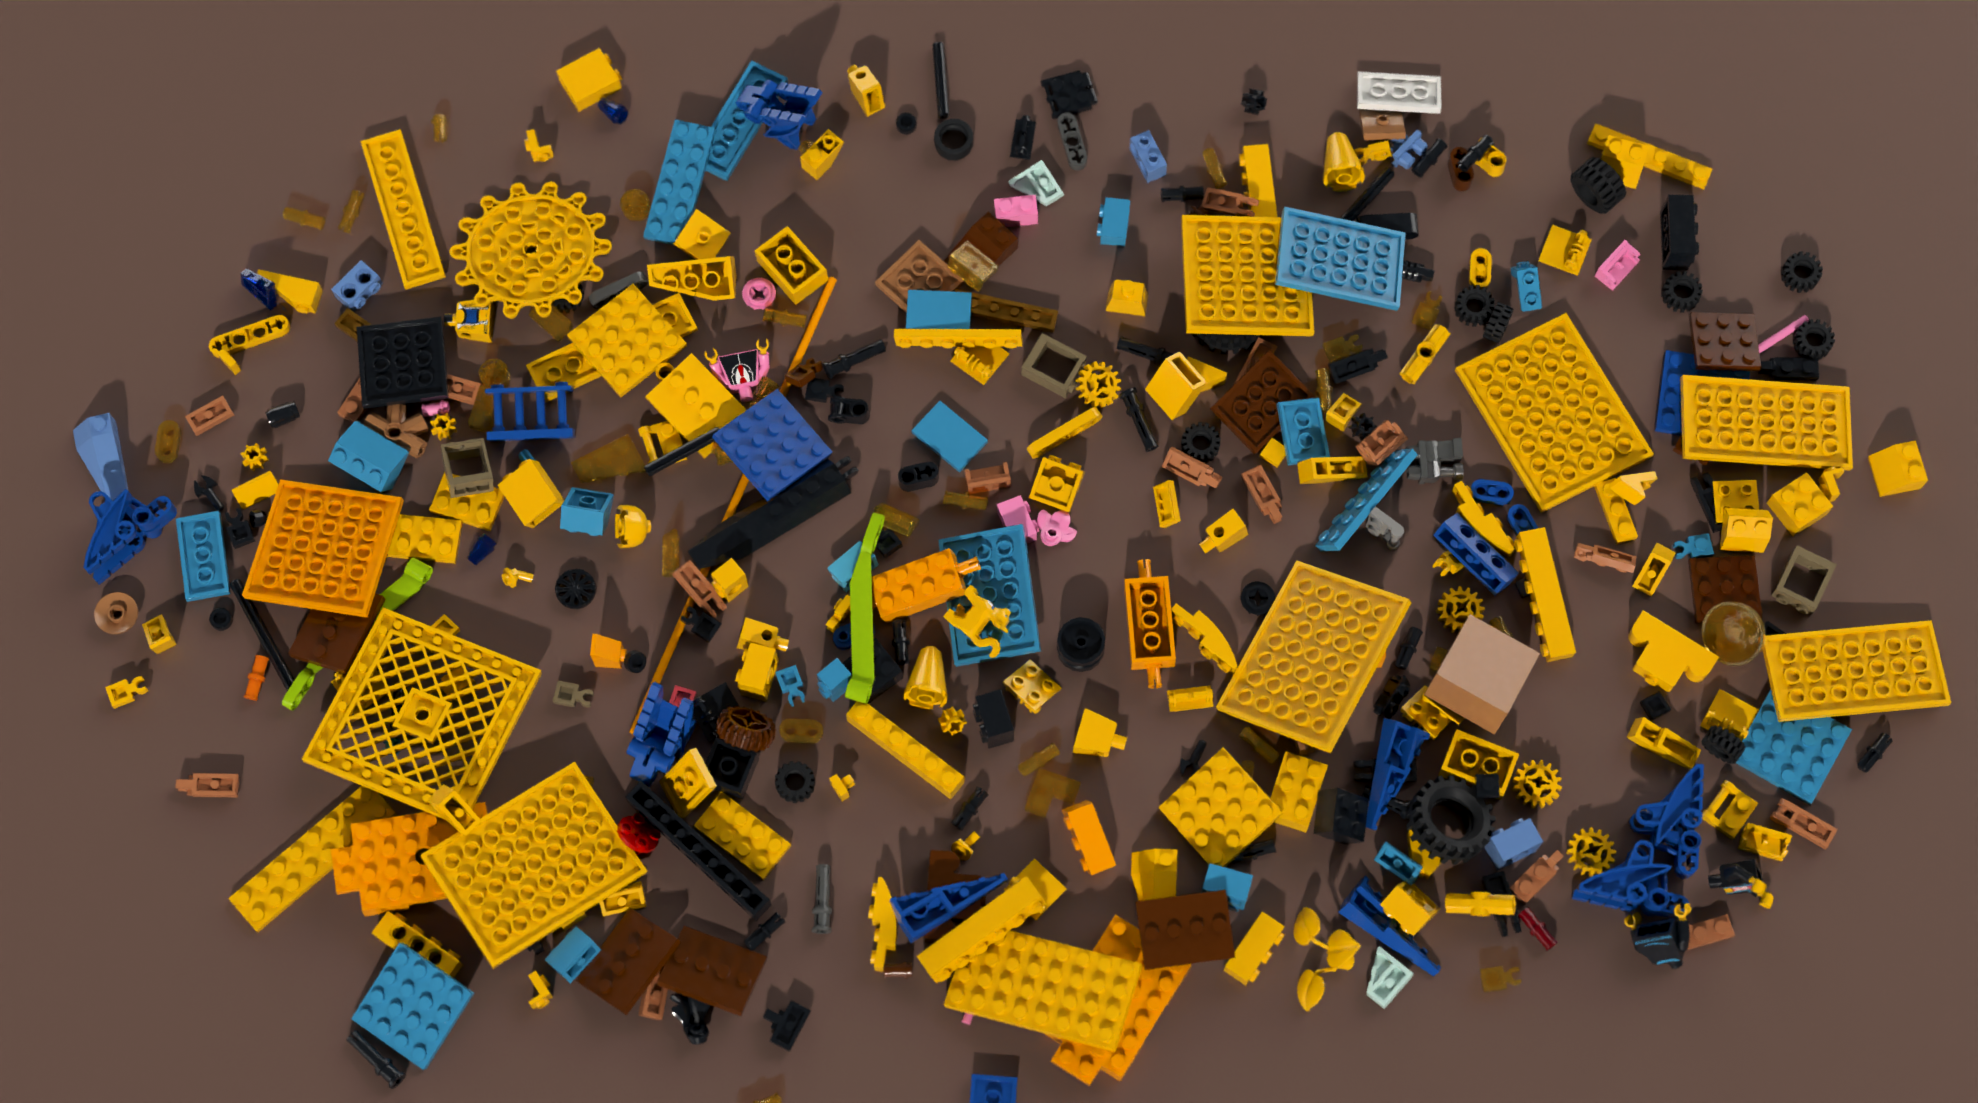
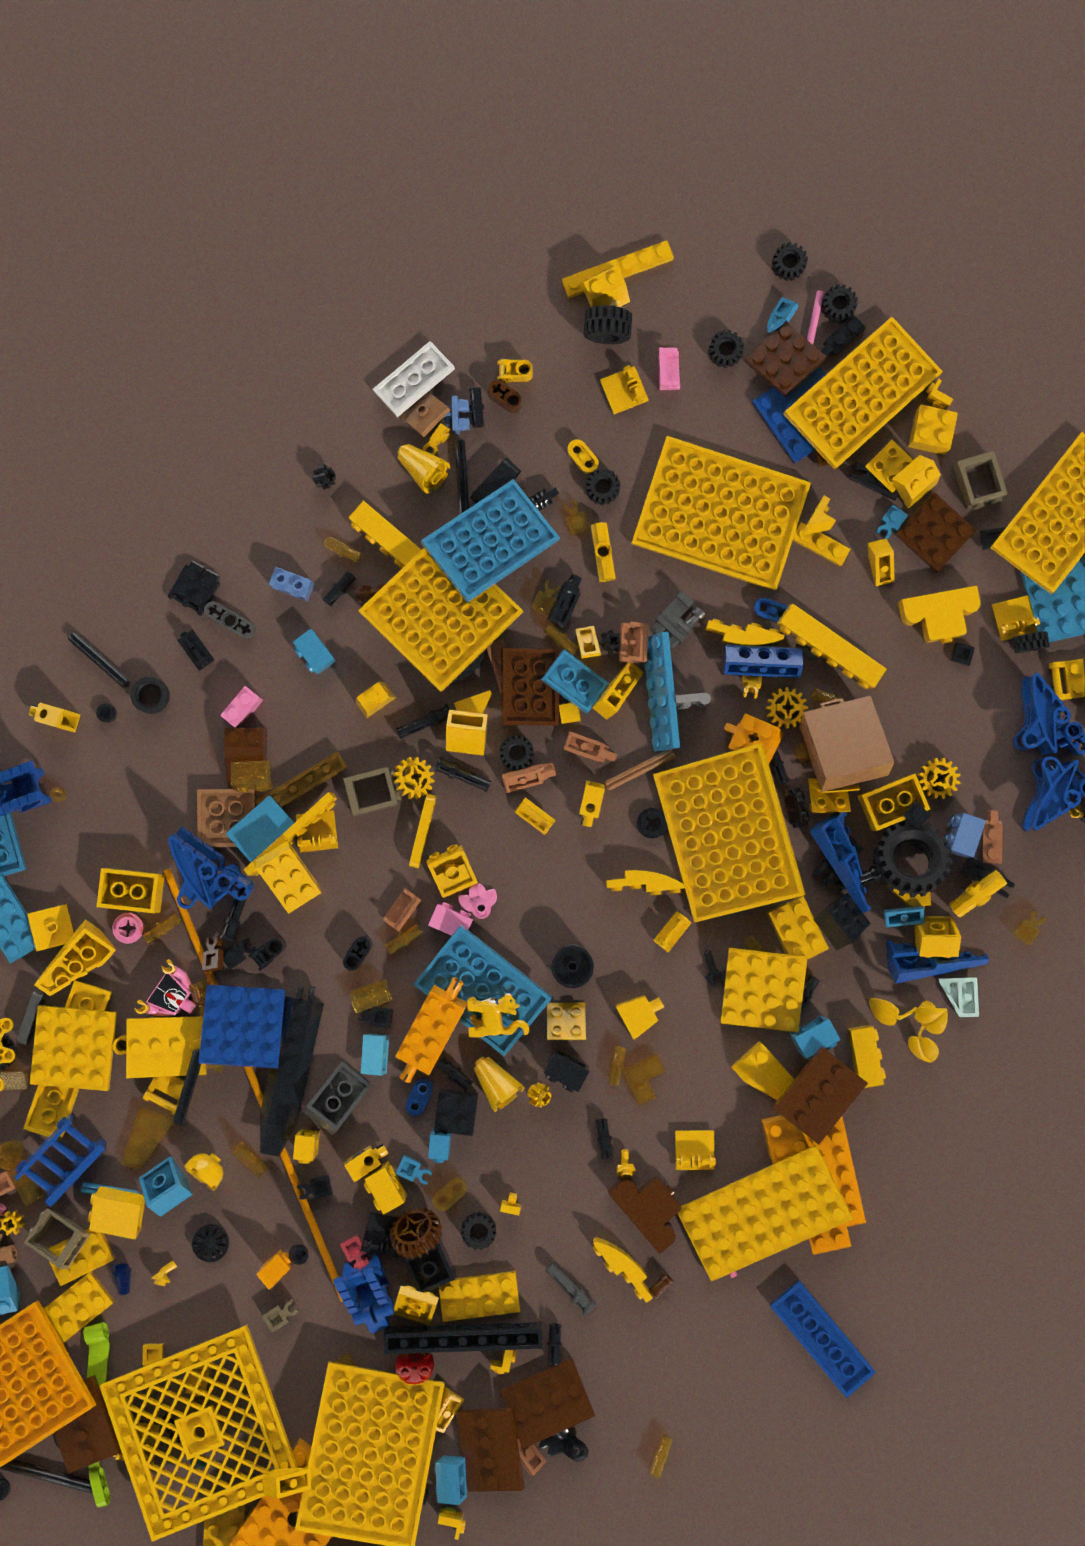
camera: 50 degrees left, 15 degrees up
(256, 677) = (63, 1505): orange pin -> none
(698, 587) = (289, 1168): nougat hinge -> none
(716, 904) = (503, 1366): none -> yellow bracket
(787, 570) = (336, 1098): none -> dark grey slope
(787, 1024) = (626, 1388): black hinge -> none
(821, 154) = (72, 791): yellow slope -> none
(842, 609) = (397, 1089): yellow plate -> none
(857, 301) = (200, 873): none -> blue piece
(861, 609) = (418, 1089): lime piece -> none
(905, 748) = (527, 1142): yellow brick -> none
(923, 365) = (287, 876): none -> yellow brick
(927, 910) = (647, 1237): blue wedge -> none
(949, 436) = (350, 904): dark azure tile -> none
(981, 930) = (692, 1215): yellow brick -> none
(1038, 182) = (237, 673): light aqua wing -> none
(1088, 837) = (696, 1087): light orange wedge -> none
(1149, 623) = (601, 909): light orange brick -> none
(1228, 202) = (376, 568): nougat hinge -> none
(1259, 744) = (744, 920): clear yellow axle -> none
(1289, 548) = (639, 769): none -> medium nougat axle
(1422, 611) = (751, 729): none -> light orange hinge
(1475, 153) = (507, 377): black pin -> none
(1491, 491) = (731, 607): blue plate -> none
(1498, 322) = (631, 485): black tyre -> none
(1528, 286) = (624, 438): dark azure bracket -> none
(1537, 929) = (1023, 872): dark red pin -> none
(1588, 843) = (1015, 784): yellow gear -> none
(1606, 557) = (844, 582): nougat hinge -> none
(1663, 743) = (990, 675): yellow slope -> none
(1678, 232) = (689, 308): black brick -> none
(1725, 637) = (974, 561): clear yellow piece -> none
(1757, 305) = (782, 312): none -> dark azure plate
(1898, 469) = (971, 345): yellow slope -> none

